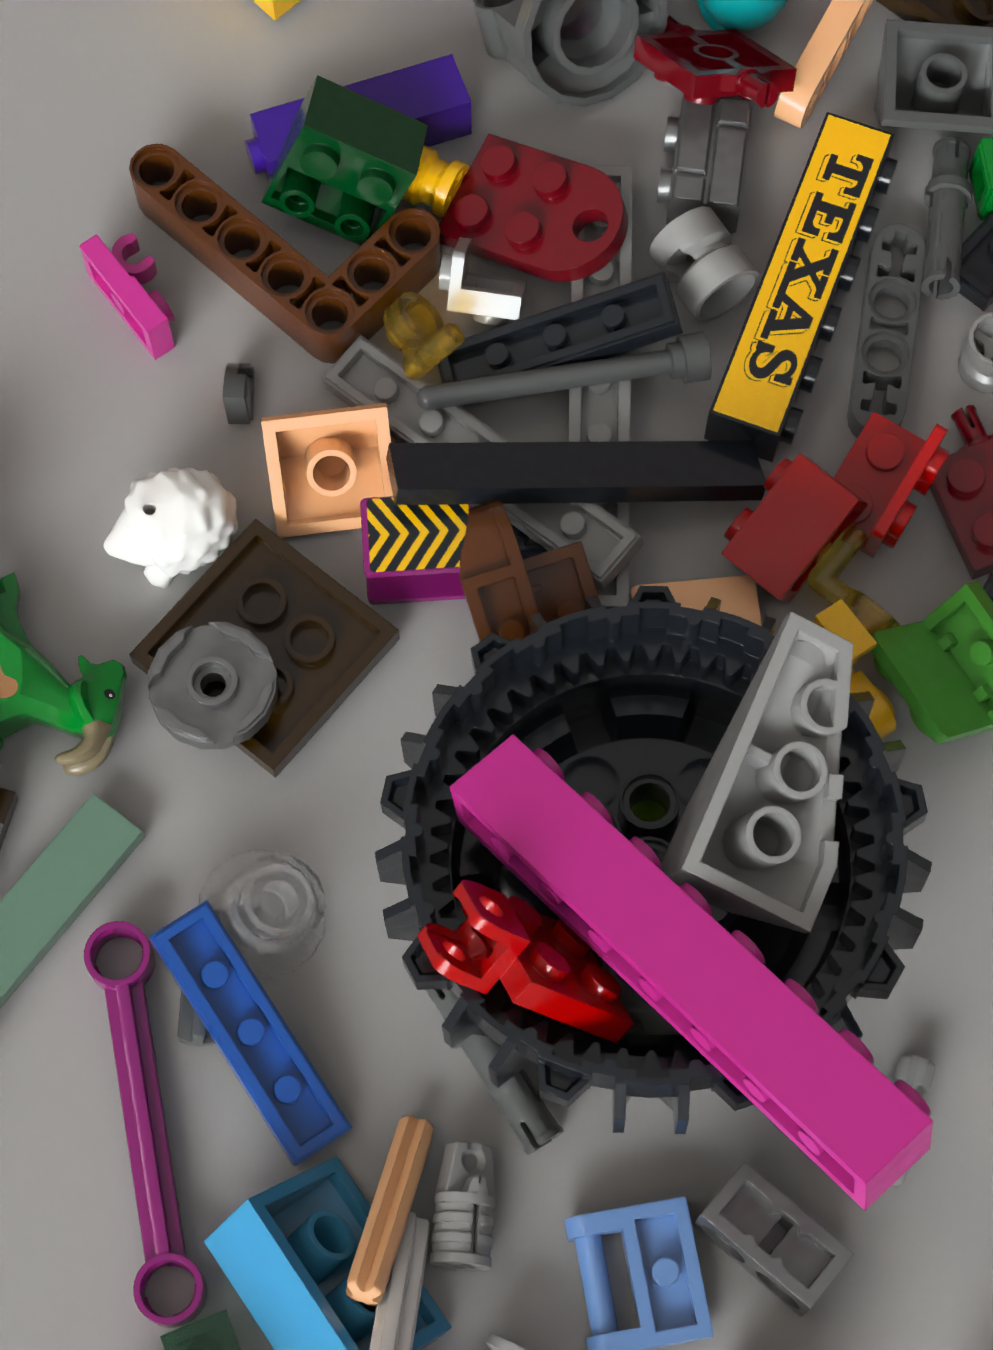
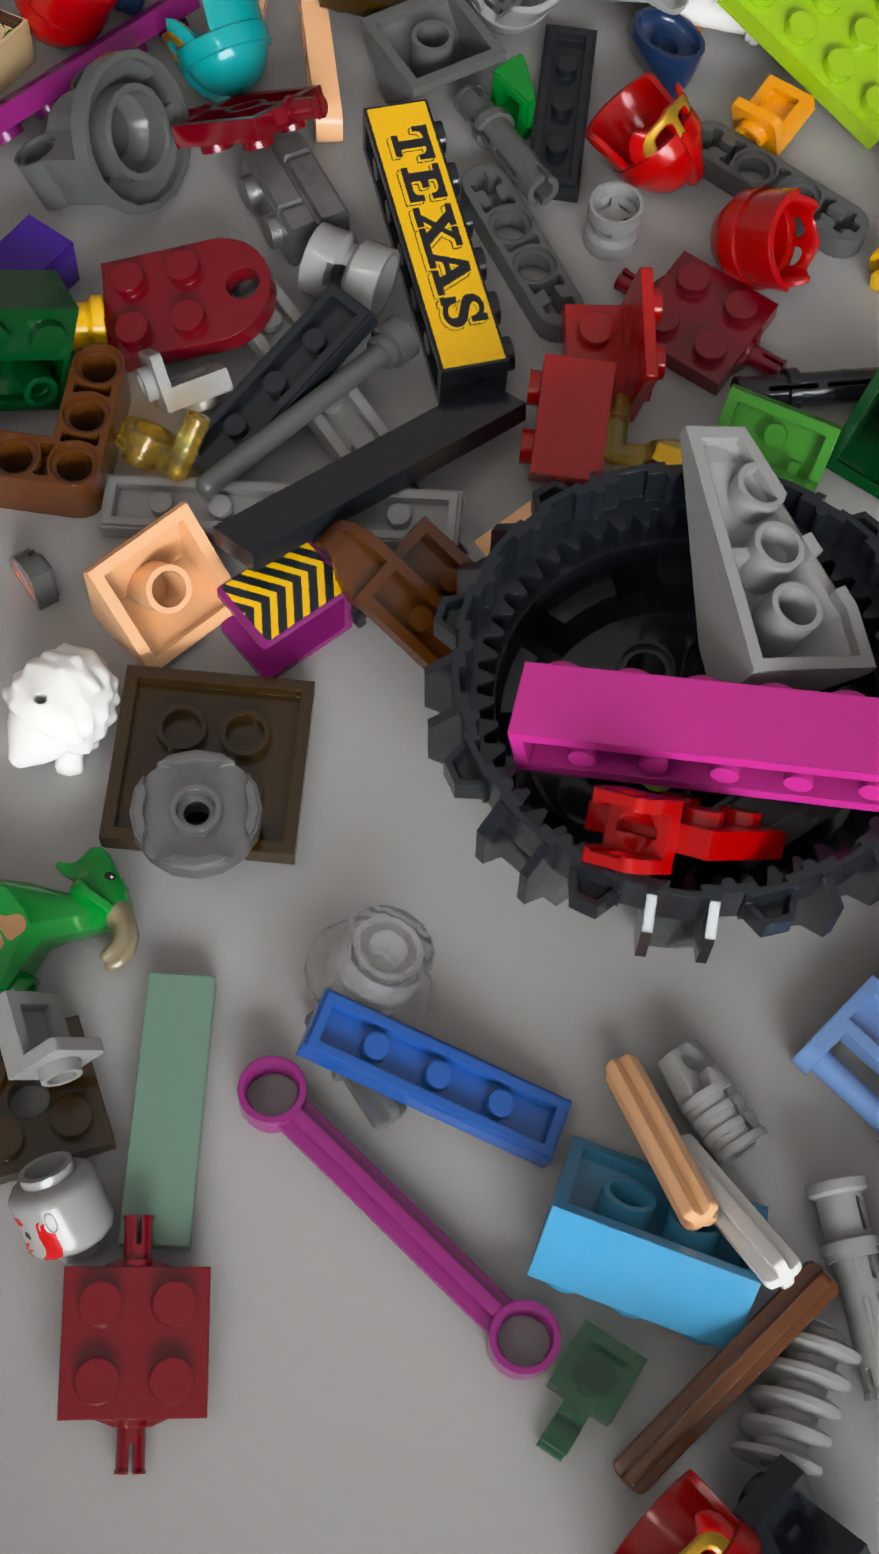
camera: 40 degrees left, 5 degrees down
(517, 1096) = (649, 974): dark grey pin -> none

